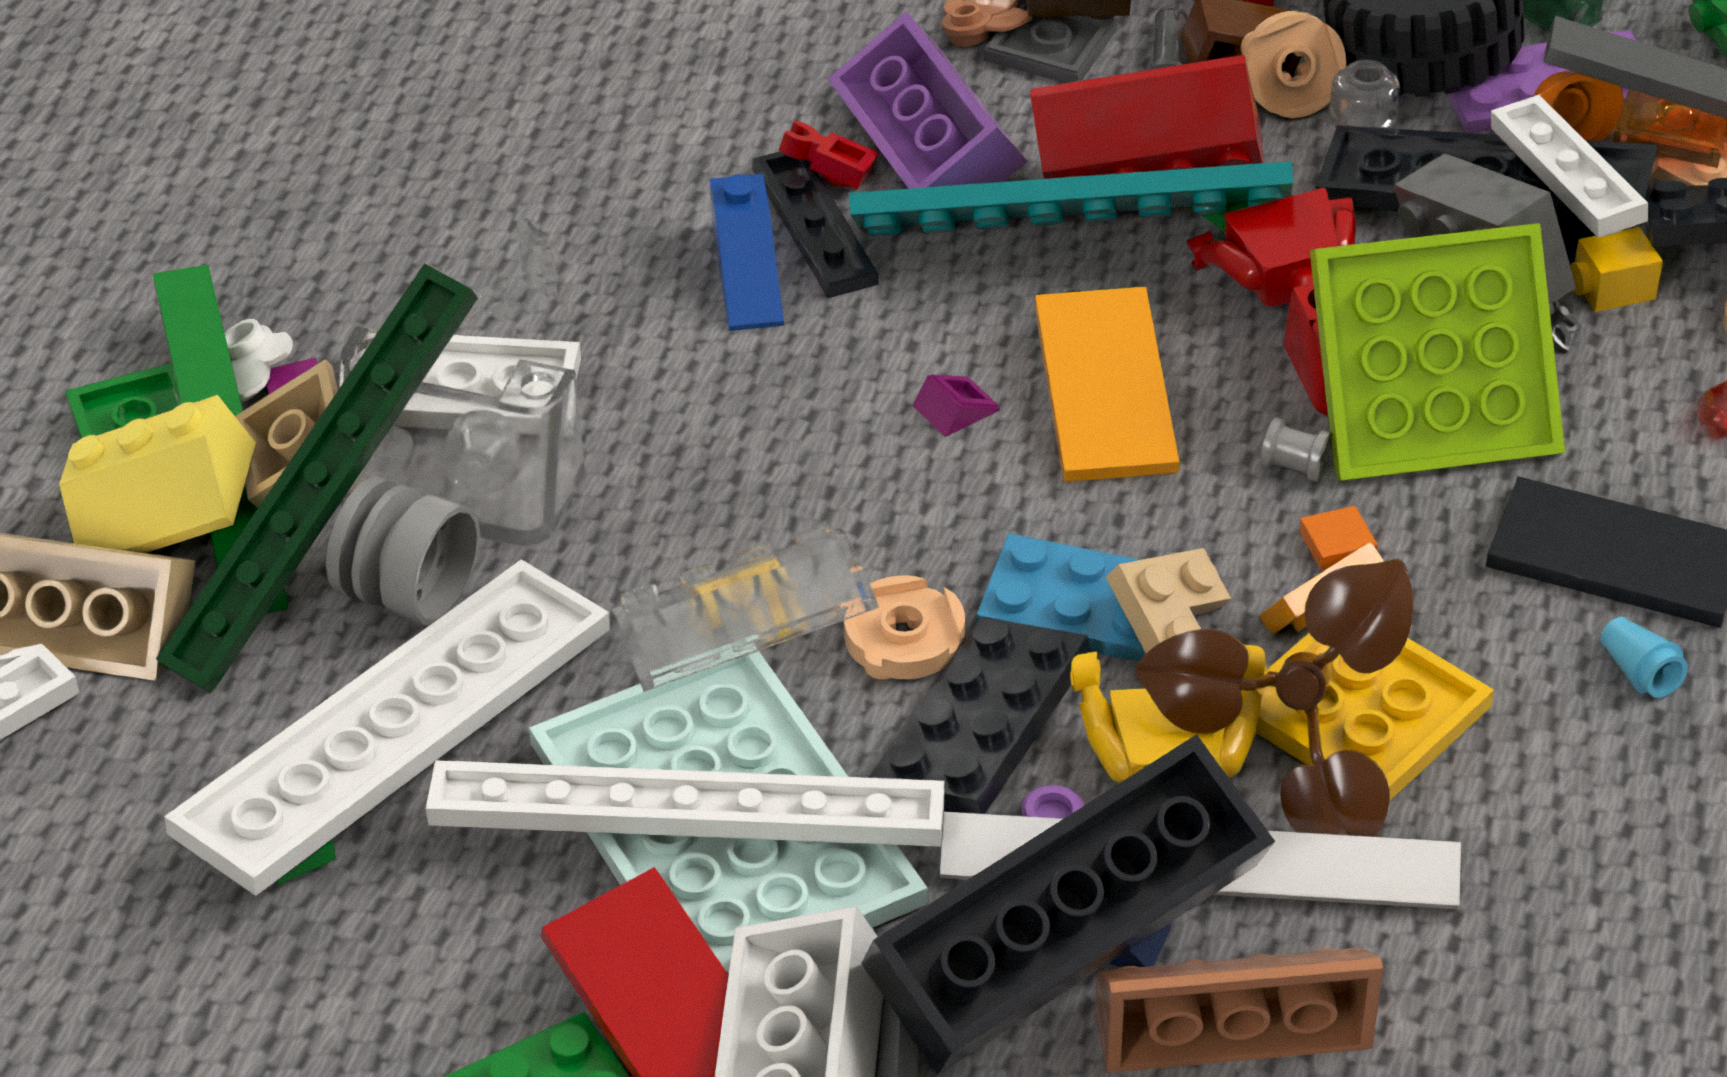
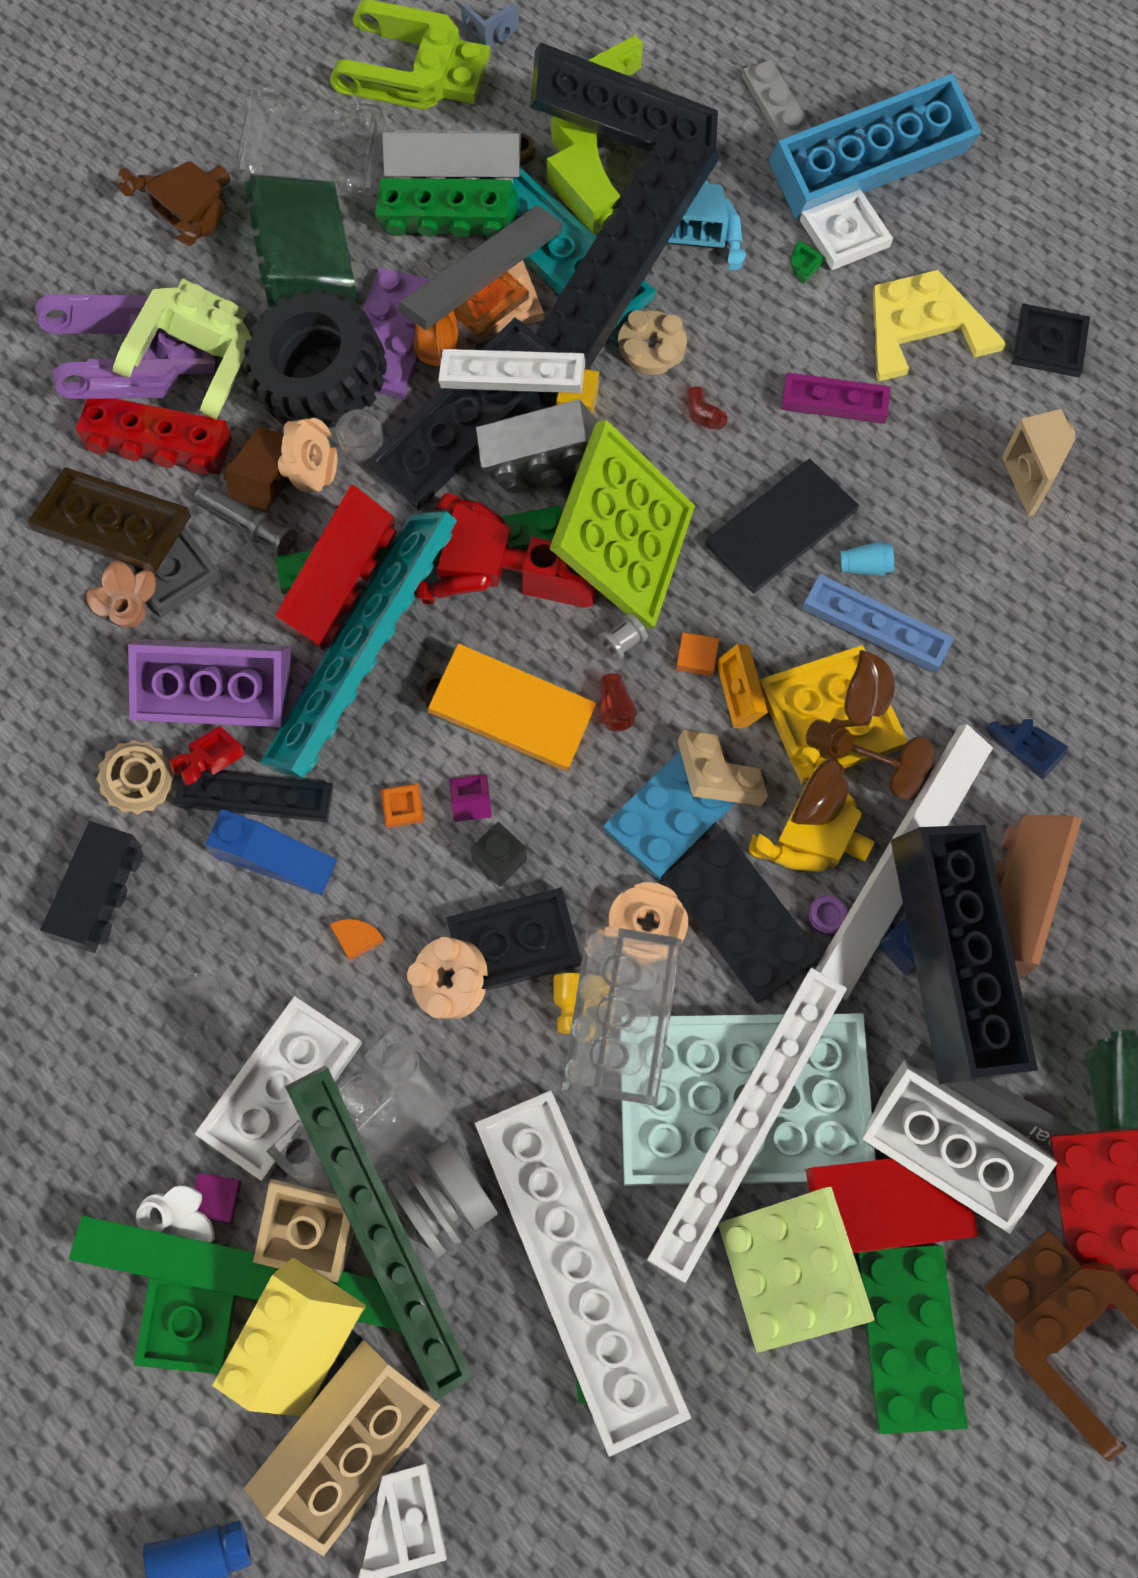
camera: 65 degrees left, 25 degrees up
(507, 916) = (795, 1270): none -> yellowish green plate
(600, 134) = (93, 887): none -> black brick
(689, 456) = (428, 978): none -> light nougat plate
(693, 375) = (356, 936): none -> orange tile
(758, 112) = (135, 777): none -> tan piece
(777, 491) = (520, 937): none -> black plate
(890, 443) = (499, 854): none -> pearl dark grey brick
(897, 348) = (402, 805): none -> orange tile
(1192, 480) = (616, 705): none -> clear red cone
(1502, 953) = (1030, 745): none -> dark blue slope
(1549, 705) = (878, 623): none -> medium blue plate

